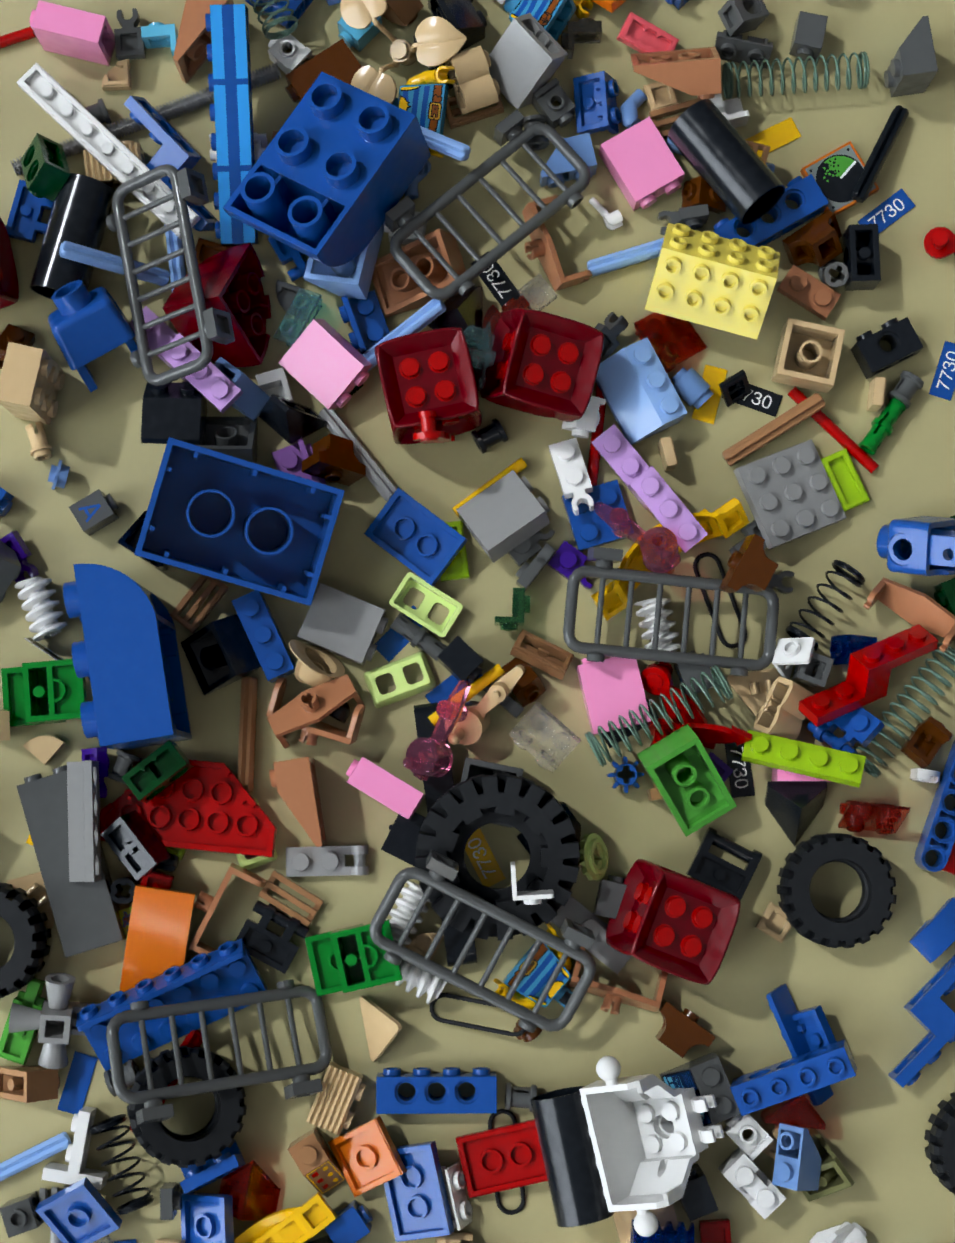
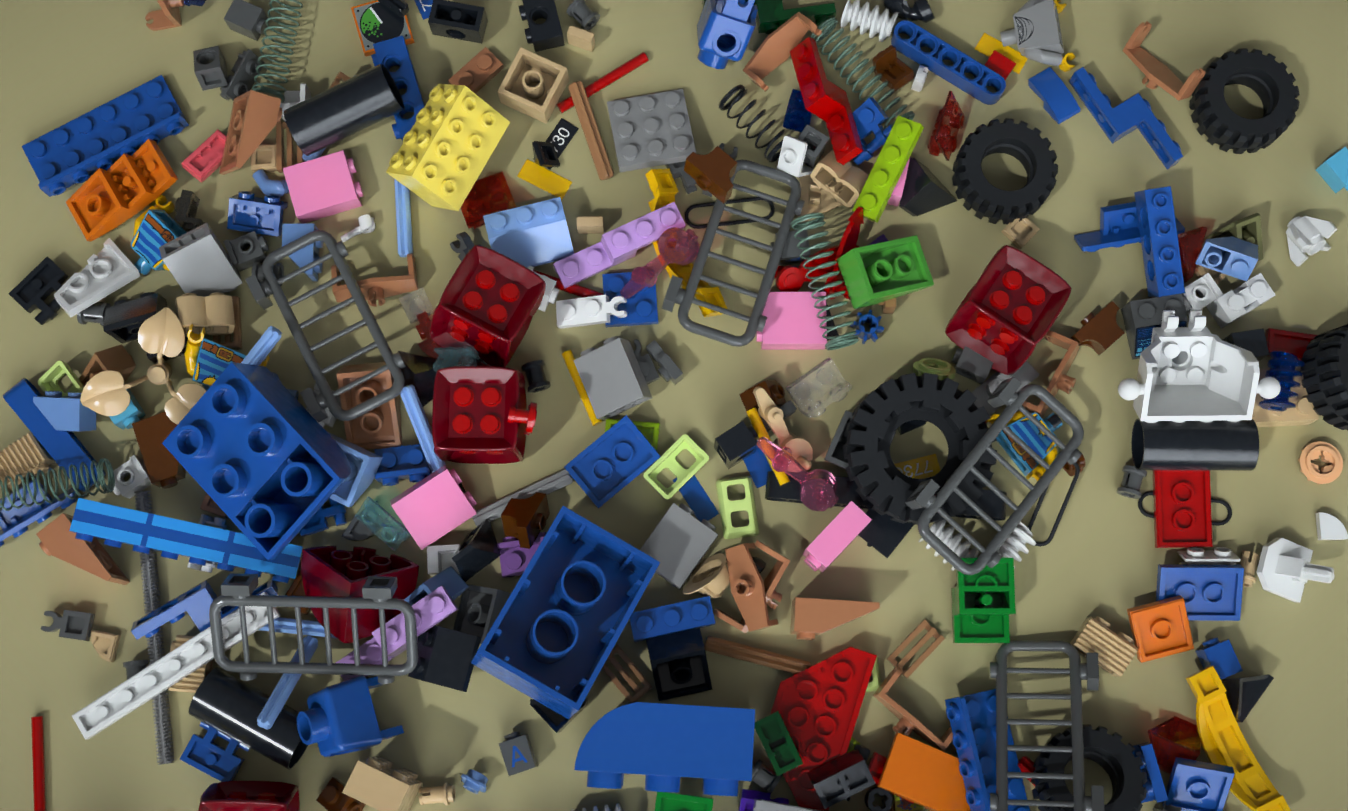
camera: 75 degrees left, 5 degrees down
(45, 167) = (177, 728): dark green brick -> none
(73, 32) = (51, 675): bright pink brick -> none
(159, 35) = (78, 591): medium azure bracket -> none
(265, 944) = (954, 679): black plate -> none
(316, 1161) = (1155, 676): medium nougat slope -> none
(325, 861) = (887, 618): light grey plate -> none
(378, 1026) = (1047, 593): tan piece -> none
(417, 636) = (703, 480): dark grey pin -> none
(422, 942) = (981, 533): tan tile -> none
(422, 1102) = (1129, 516): blue brick -> none
(498, 283) = (396, 338): black sticker -> none
(520, 605) = (697, 384): clear green bracket -> none
(529, 897) = (964, 425): white bracket -> none
(539, 657) = (747, 374): medium nougat tile -> none
(567, 560) = (666, 332): dark purple plate -> none
(665, 635) = (728, 271): white piece -> none
(691, 216) = (382, 155): dark grey plate -> none
(692, 387) = (536, 190): medium blue brick -> none
(698, 192) = (363, 143): reddish brown bracket -> none
(719, 872) = (968, 267): black plate -> none
(741, 778) = (891, 230): black sticker -> none
(777, 135) = (327, 67): yellow sticker -> none
(815, 242) = (434, 56): reddish brown brick -> none
(840, 267) = (463, 40): dark grey bush -> none
(845, 480) = (649, 82): lime tile -> none
(882, 426) = (610, 40): green pin -> none

